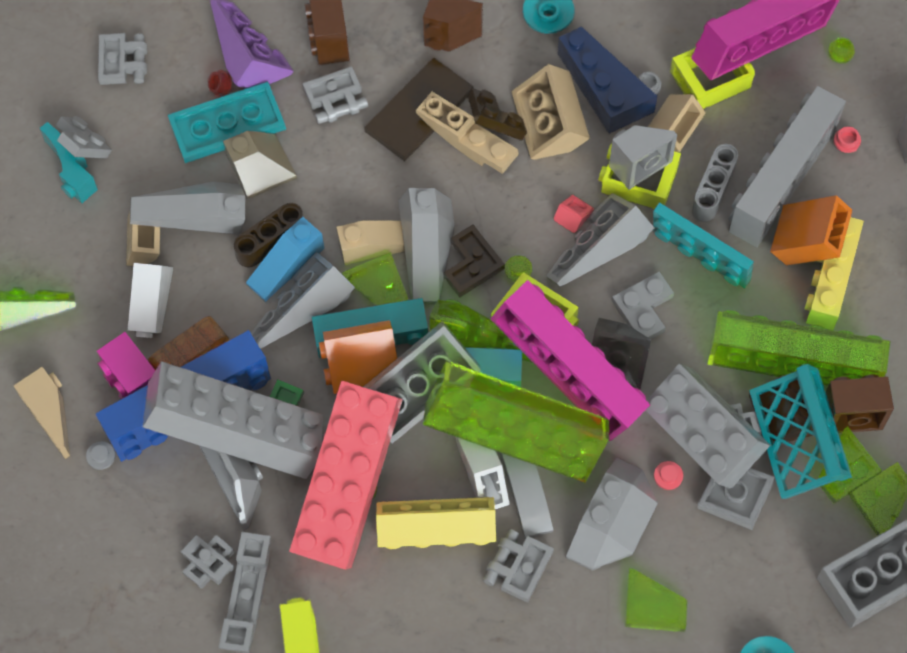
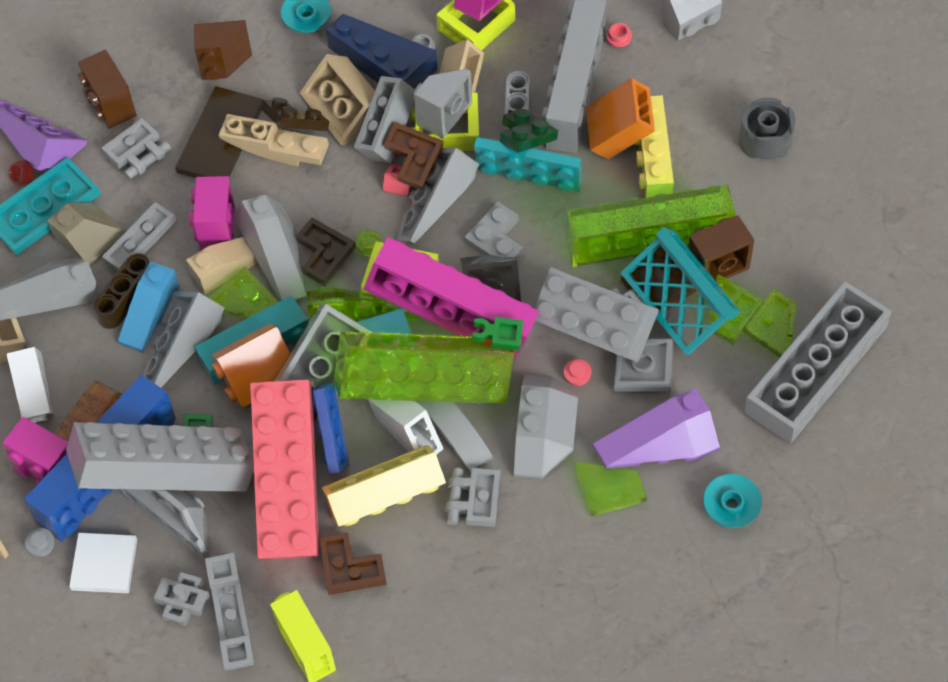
camera: 20 degrees left, 5 degrees down
(150, 497) = (103, 563): none -> white tile
(305, 185) = (140, 235): none -> light grey plate
(368, 595) = (345, 573): none -> reddish brown plate
(380, 187) = (212, 211): none -> dark pink brick
(406, 447) = (330, 427): none -> blue plate
(580, 151) = (390, 104): none -> light grey brick
(601, 196) = (420, 151): none -> reddish brown plate
(605, 417) = (504, 333): none -> green plate
(712, 214) = (526, 131): none -> dark green plate
(729, 572) = (668, 432): none -> medium lavender wedge

